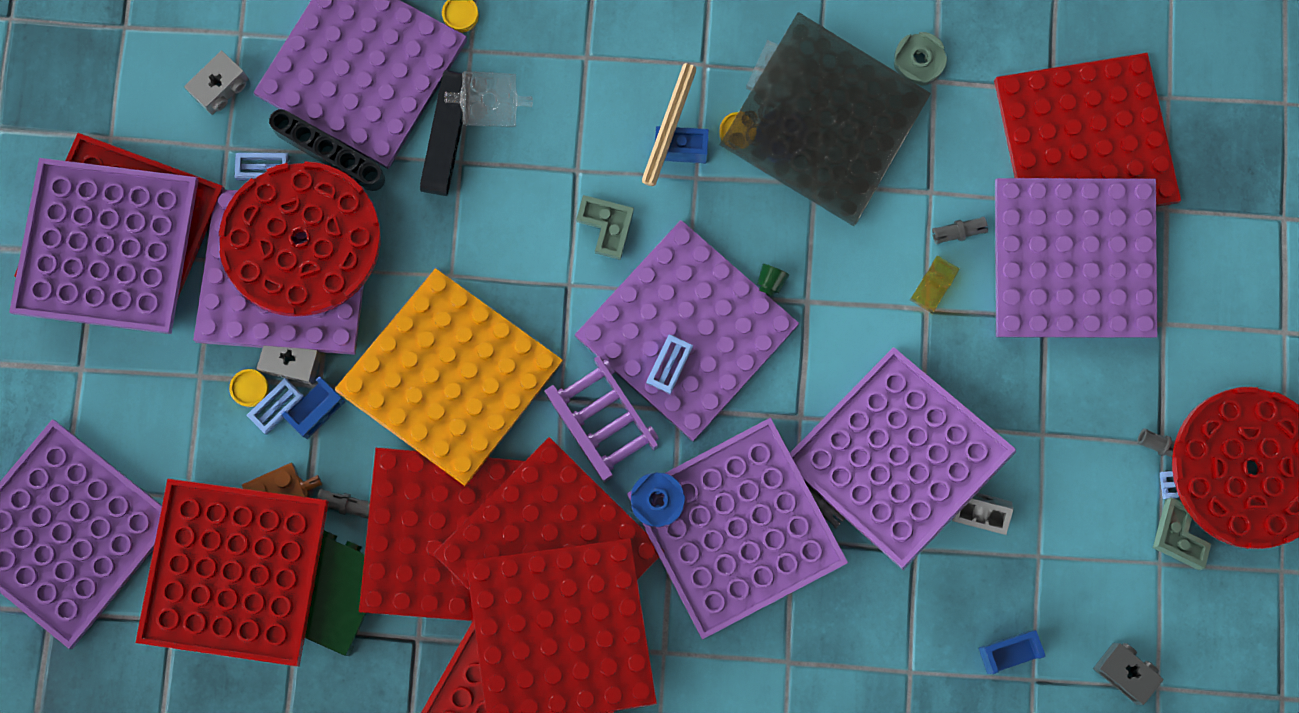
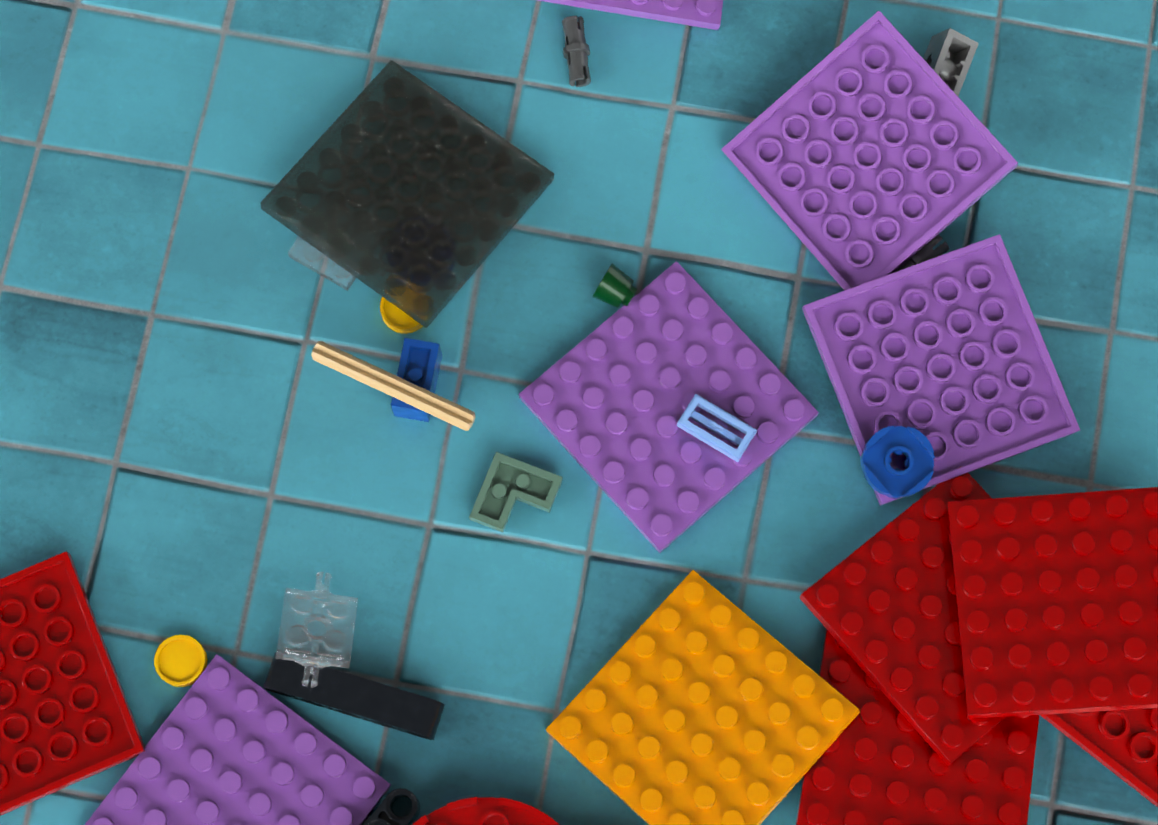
camera: 80 degrees left, 5 degrees down
(590, 442) = (778, 561): medium lavender fence -> none
(916, 44) = (340, 86): sand green plate -> none
(934, 284) = (642, 91): clear yellow slope -> none
(1011, 651) = (1116, 63): blue panel -> none

